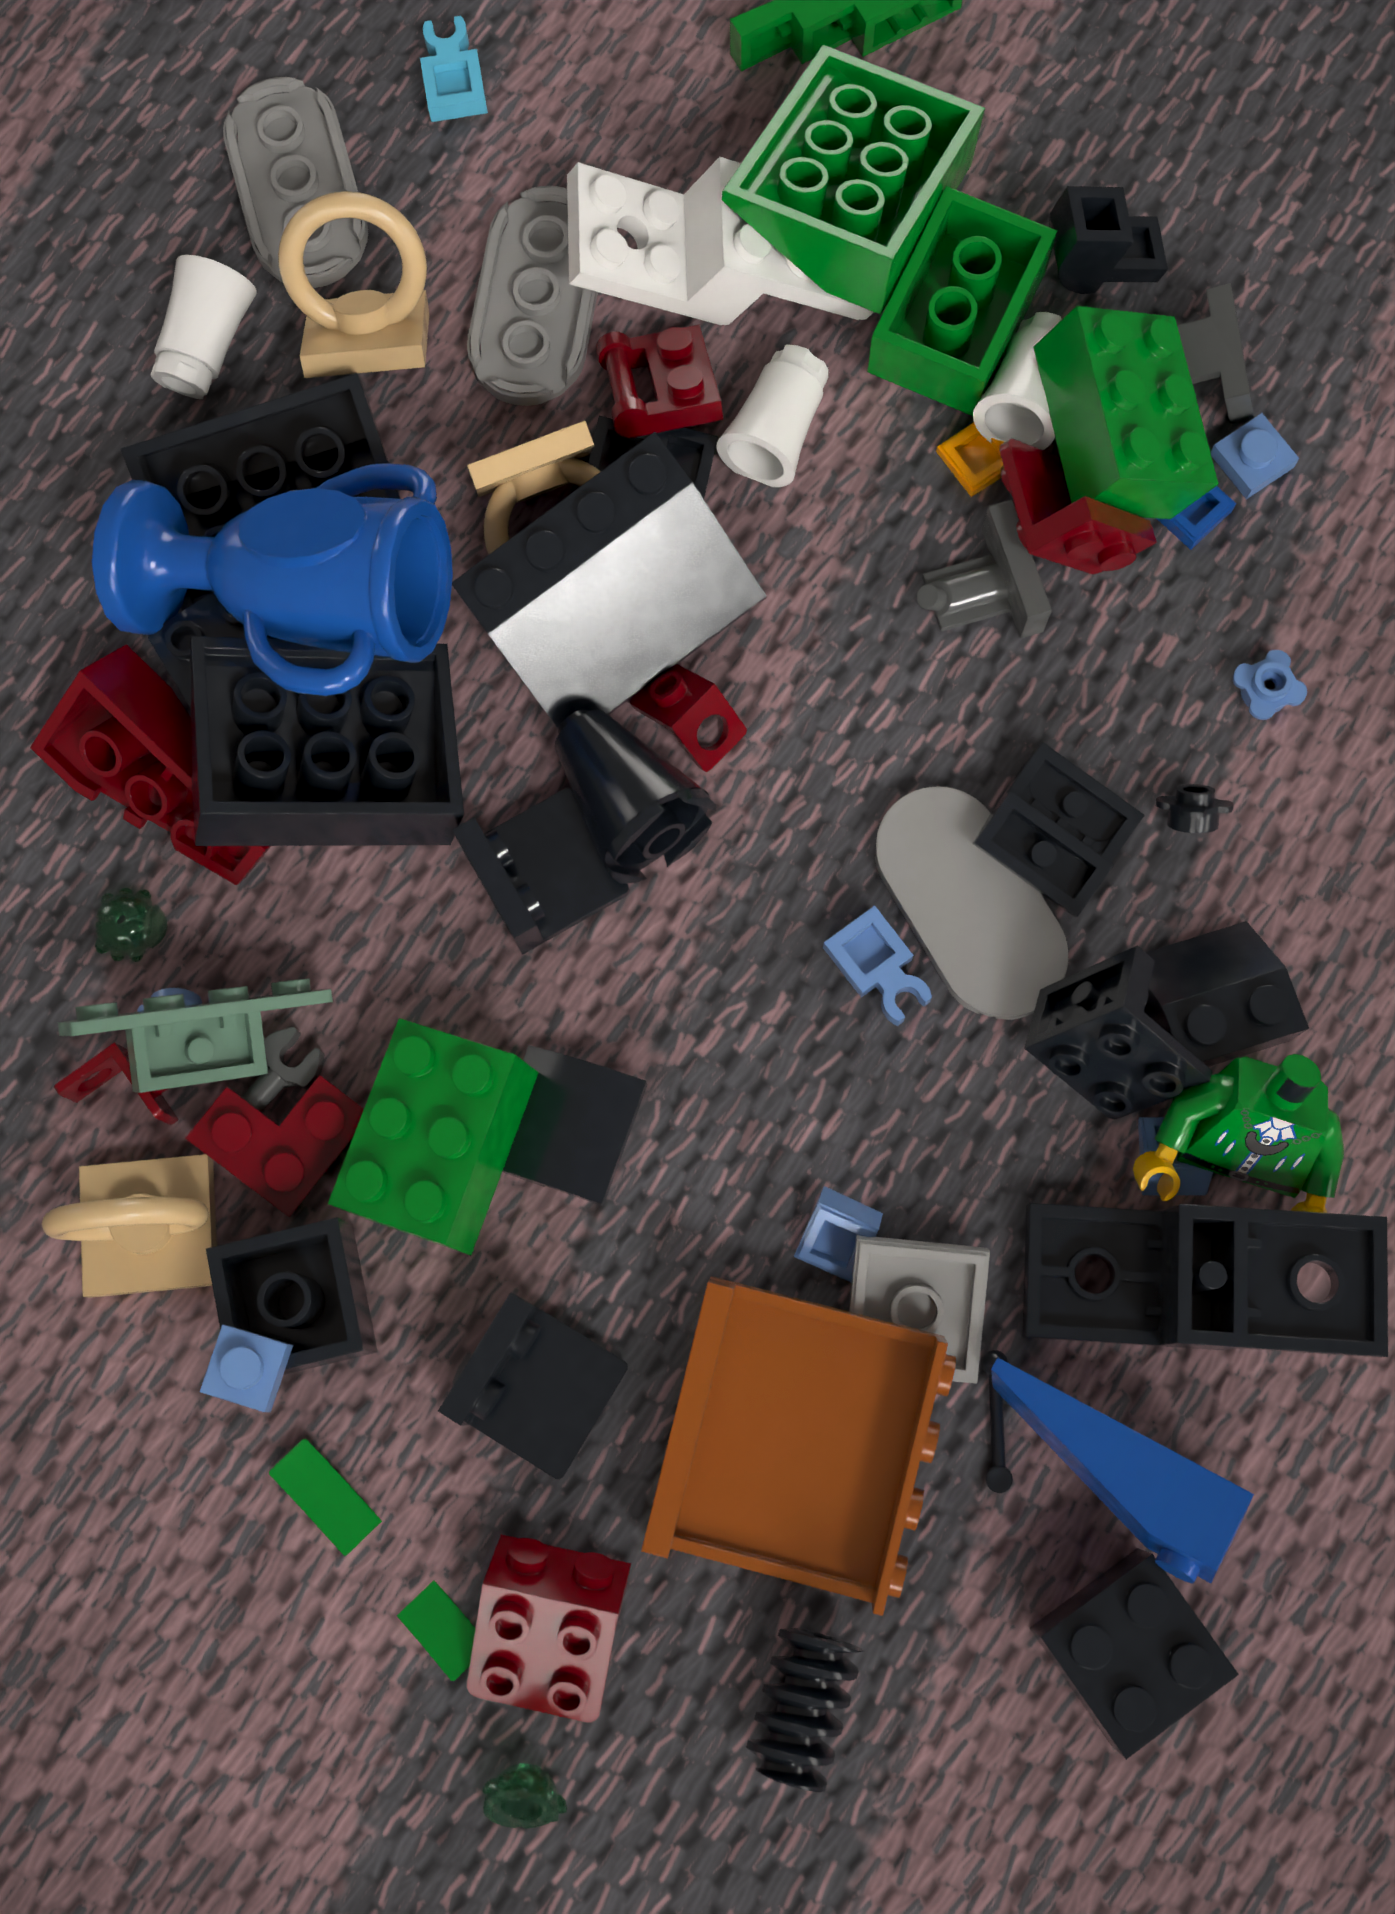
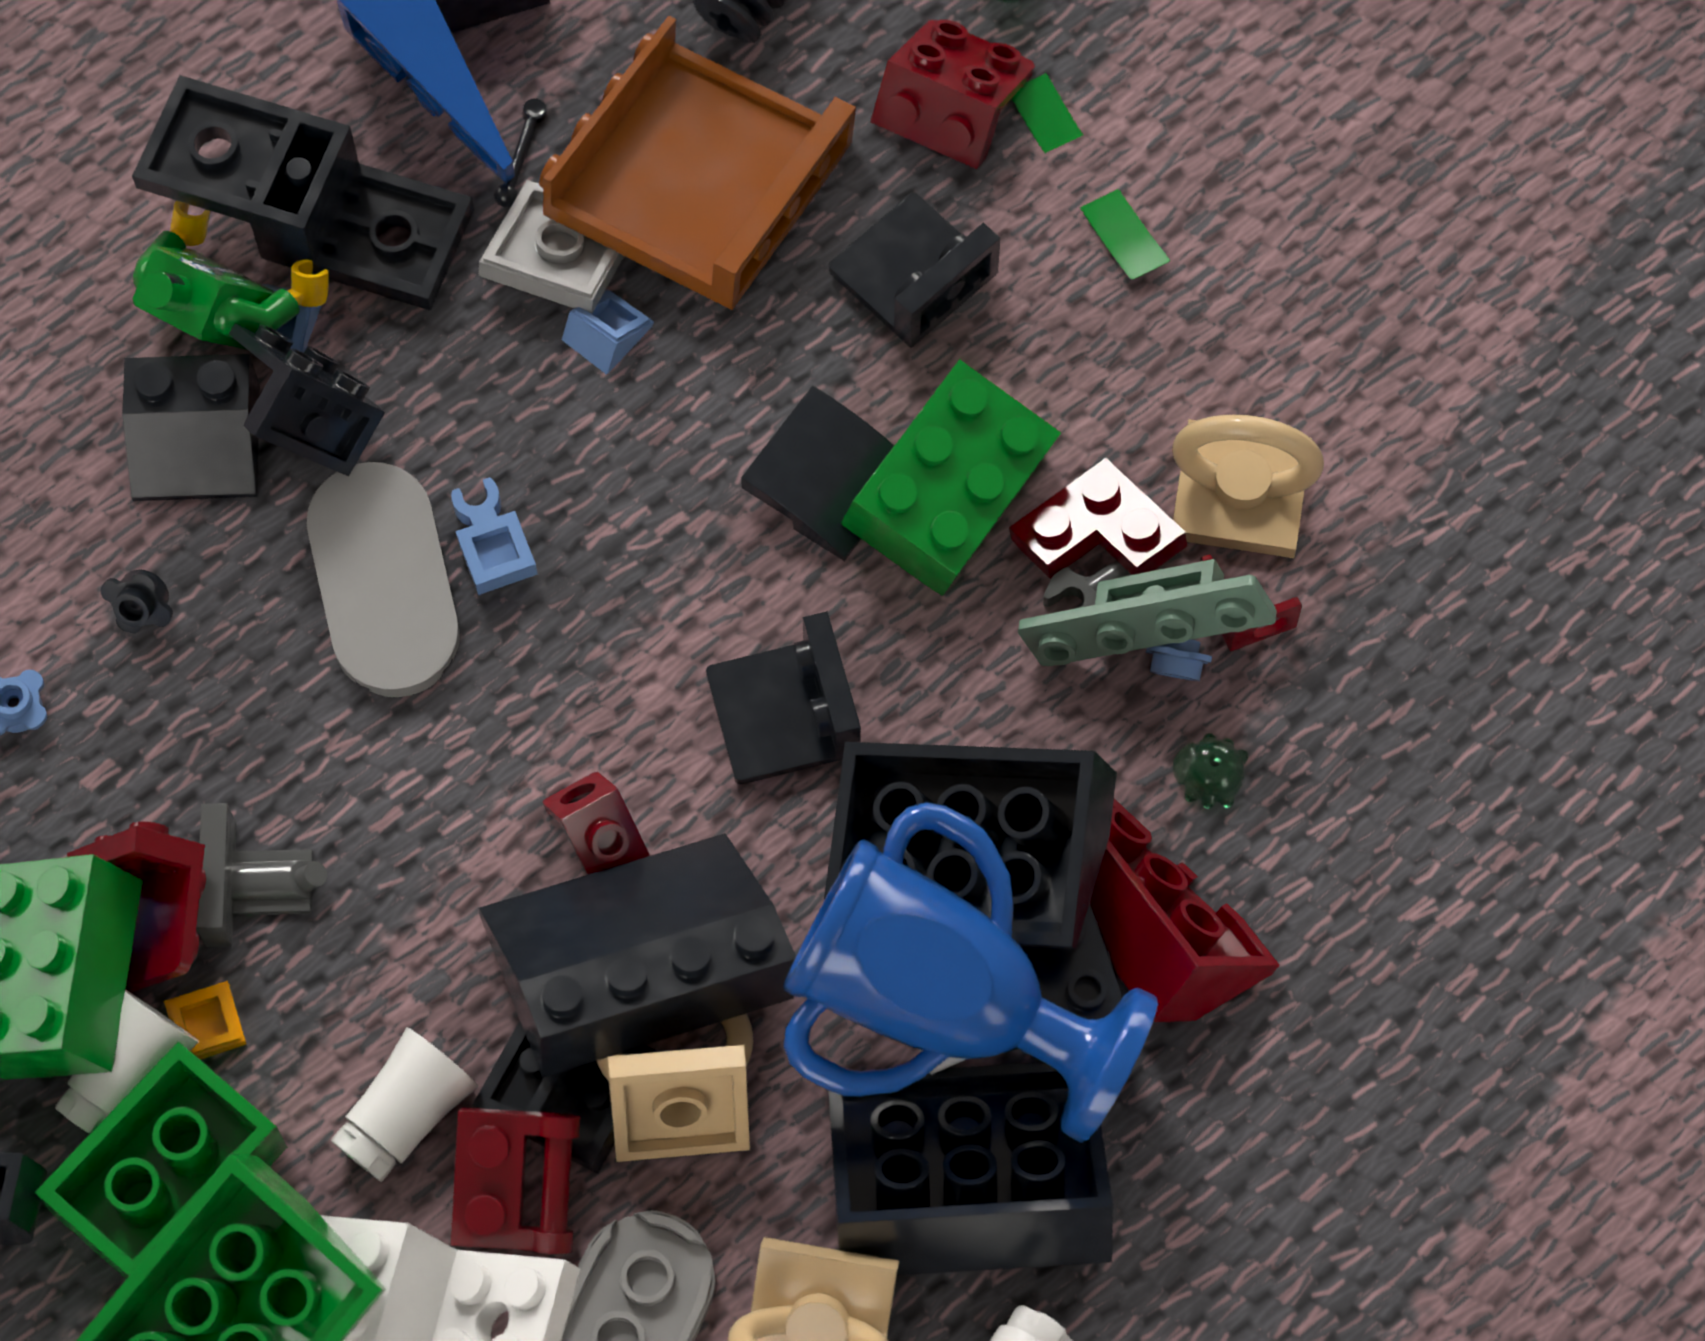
camera: 170 degrees left, 10 degrees down
(246, 1368) = (1159, 303): medium blue plate -> none
(297, 1289) = (1115, 373): black brick -> none
(629, 795) = (680, 742): black cone -> none
(1058, 829) = (276, 615): black slope -> none

